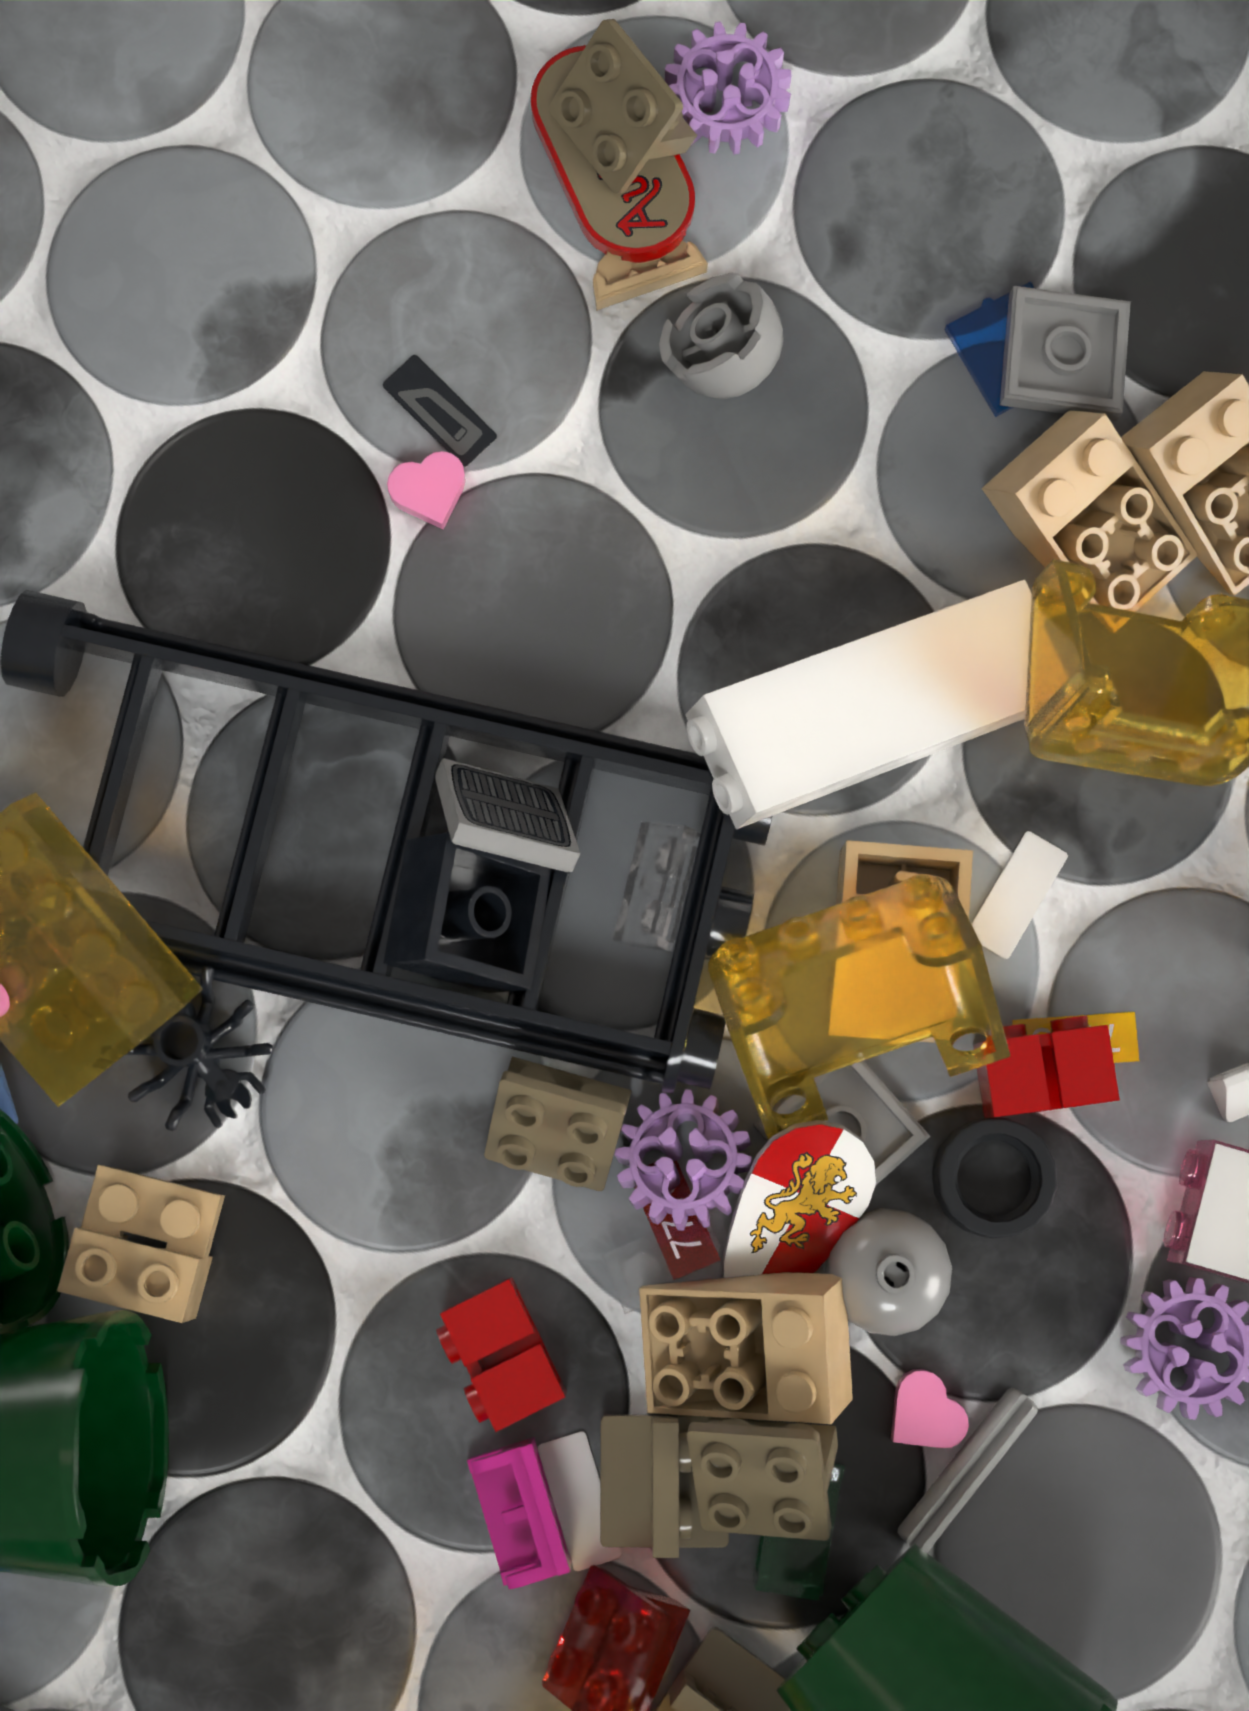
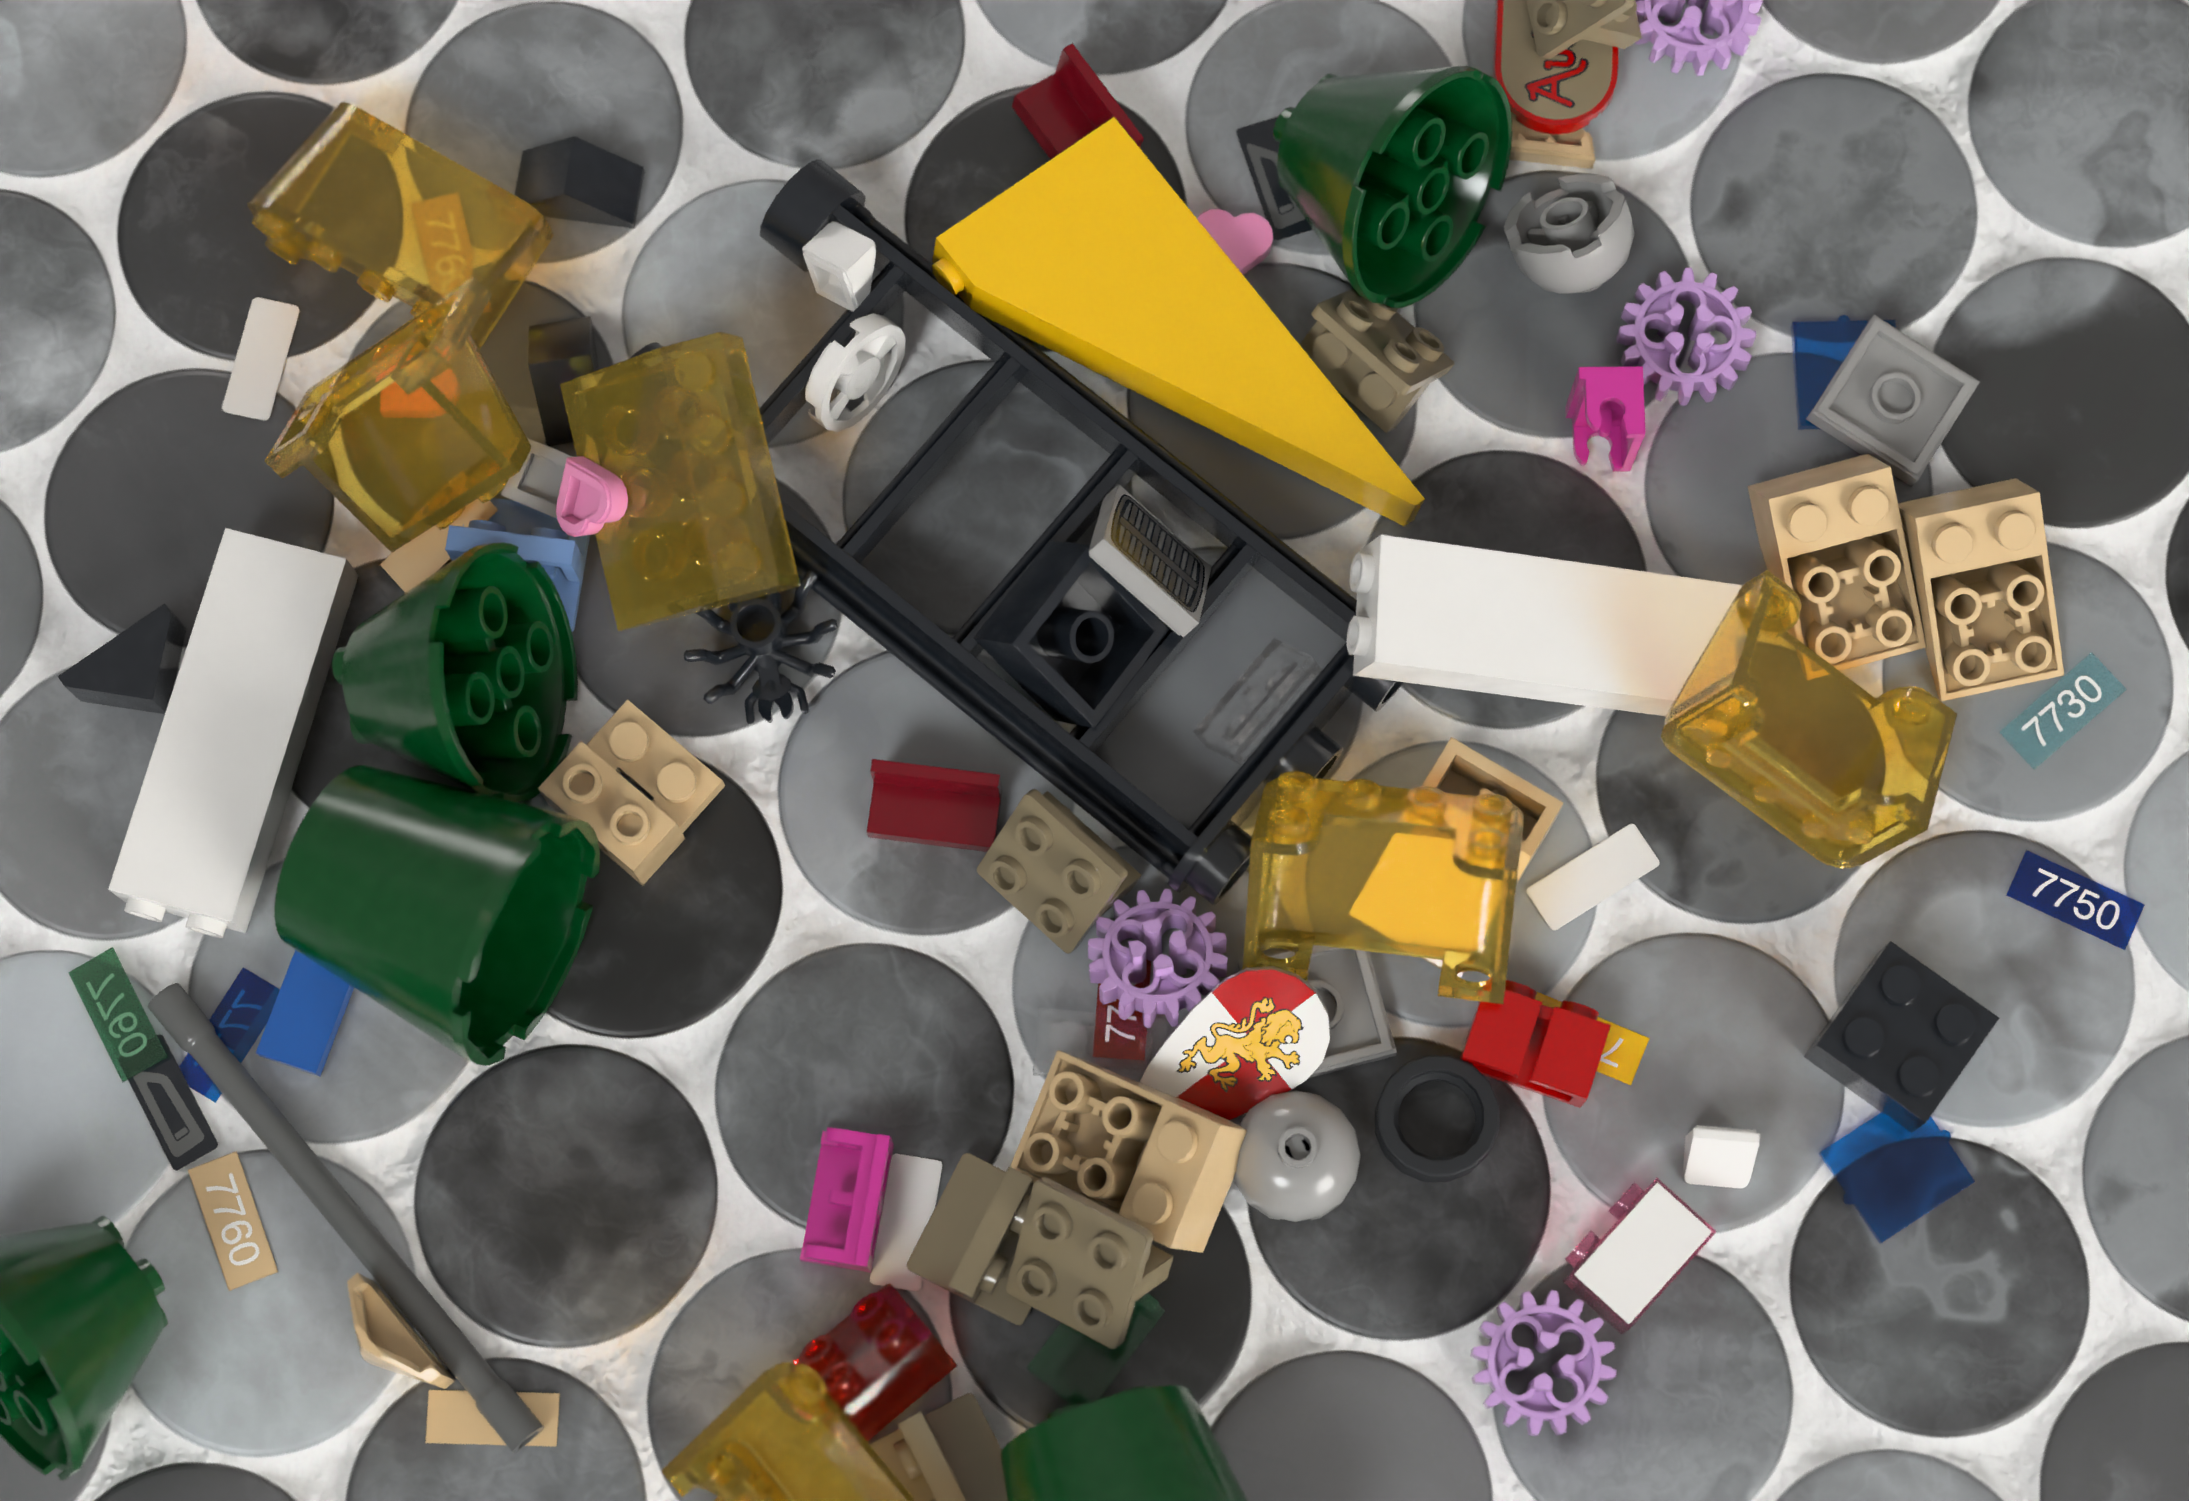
camera: 30 degrees right, 5 degrees down
(92, 677) = (841, 264): none -> white slope
(159, 759) = (859, 369): none -> white piece
(242, 446) = (1069, 105): none -> dark red panel
(362, 571) = (1131, 285): none -> yellow slope
(420, 1121) = (934, 805): none -> dark red panel
(502, 1354) = (903, 1049): red piece -> none
(543, 356) = (1396, 172): none -> dark green cone
(602, 527) = (1374, 356): none -> dark tan bracket
(830, 370) = (1663, 312): none -> lavender gear
(837, 476) = (1611, 406): none -> dark pink hinge
(925, 1413) = (1264, 1301): bright pink tile -> none
(968, 1469) = (1282, 1369): light grey axle -> none

